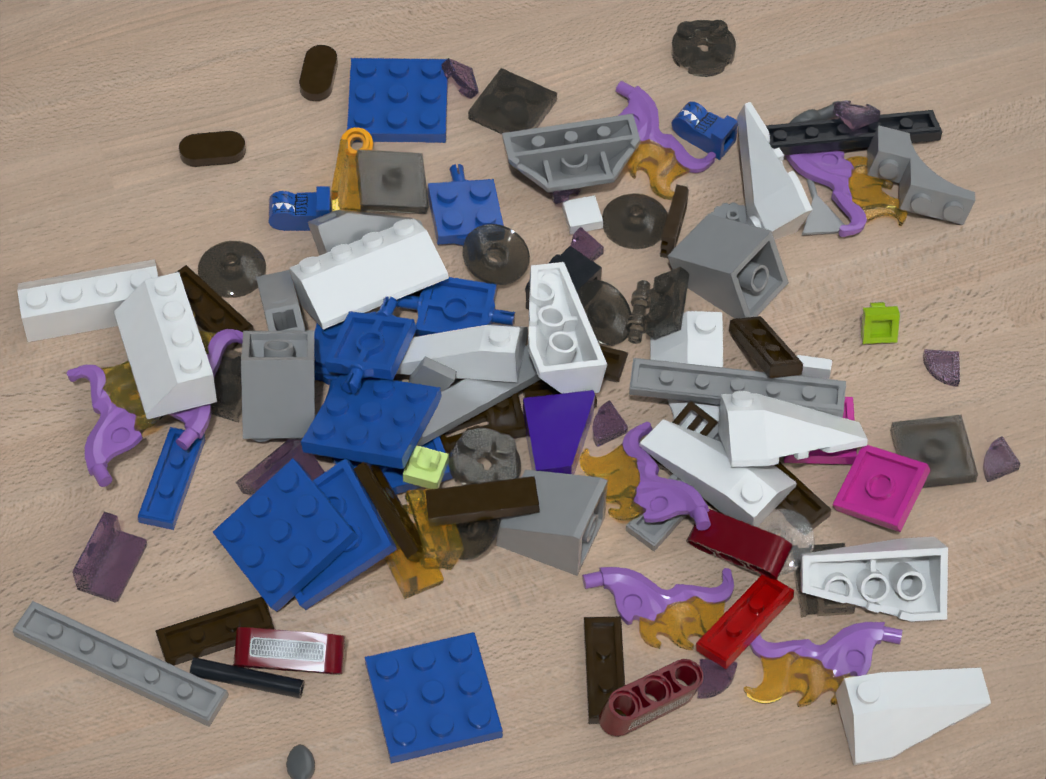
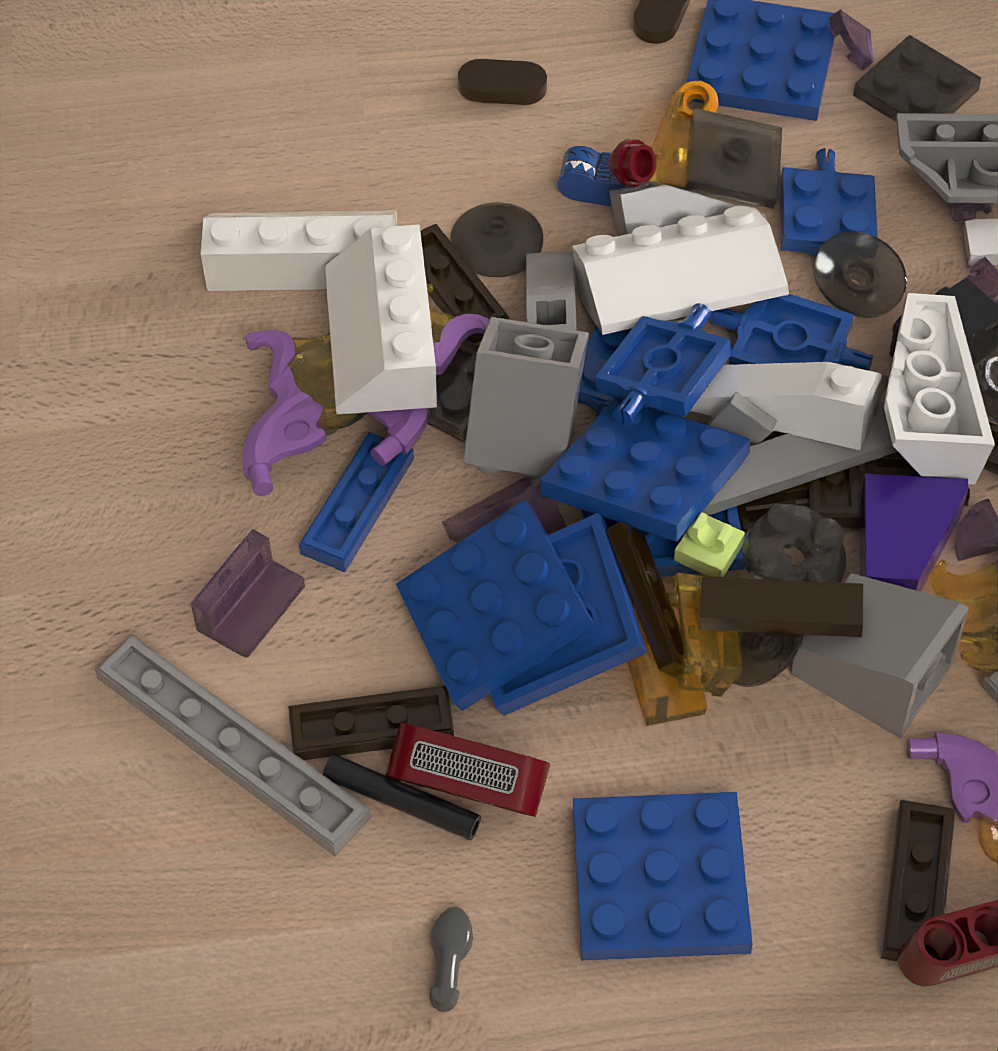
camera: 15 degrees right, 0 degrees up
(321, 200) = (632, 163): none -> dark red plate

